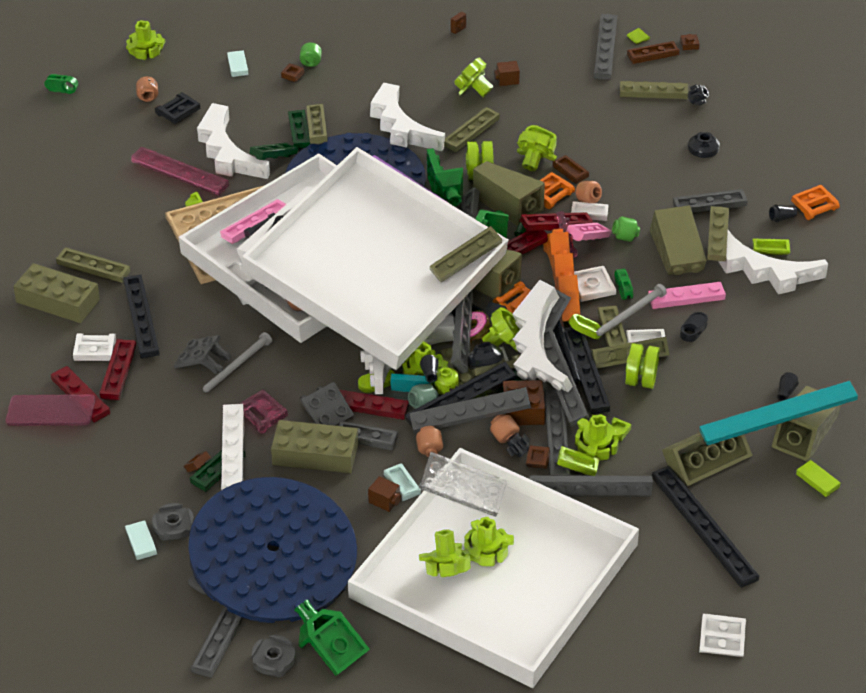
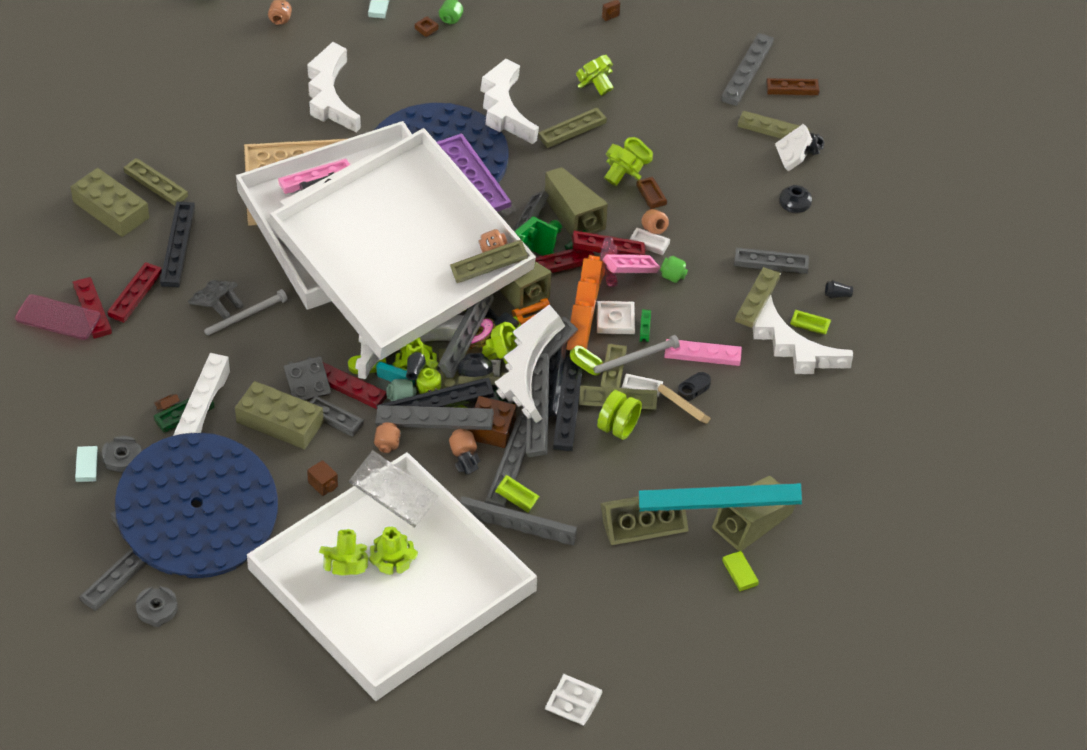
camera: 15 degrees right, 5 degrees up
(94, 347) = (121, 264): white plate -> none
(178, 108) = (302, 38): black plate -> none
(180, 171) = (276, 104): clear pink plate -> none
(194, 199) = (276, 138): lime tile -> none
(266, 407) = (253, 365): clear pink plate -> none
(273, 150) = (370, 105): dark green plate -> none
(299, 128) = (406, 87): dark green plate -> none
(316, 124) = (424, 86): olive plate -> none
(330, 637) = (212, 603): green plate -> none
(400, 476) = (345, 469): light aqua tile -> none
(444, 183) = (519, 180): green plate -> none
(461, 234) = (492, 240): none -> nougat head
(474, 158) = (559, 158): lime wheel -> none
(507, 73) = (634, 76): reddish brown brick -> none
(538, 457) = (481, 479): reddish brown plate -> none
(552, 184) = (620, 205): orange plate -> none
(597, 435) = (545, 475): lime piece -> none
(625, 426) = (574, 471): lime tile -> none
(638, 36) = (786, 65): lime slope -> none
(678, 240) = (717, 294): olive slope -> none
(683, 100) = (793, 146): none -> white plate
(689, 42) = (834, 84): reddish brown plate -> none
(693, 343) = (683, 404): none -> tan tile
(705, 527) = (609, 589): black tile -> none
(787, 385) = (755, 469): black cone -> none
(813, 197) = (876, 281): orange plate -> none

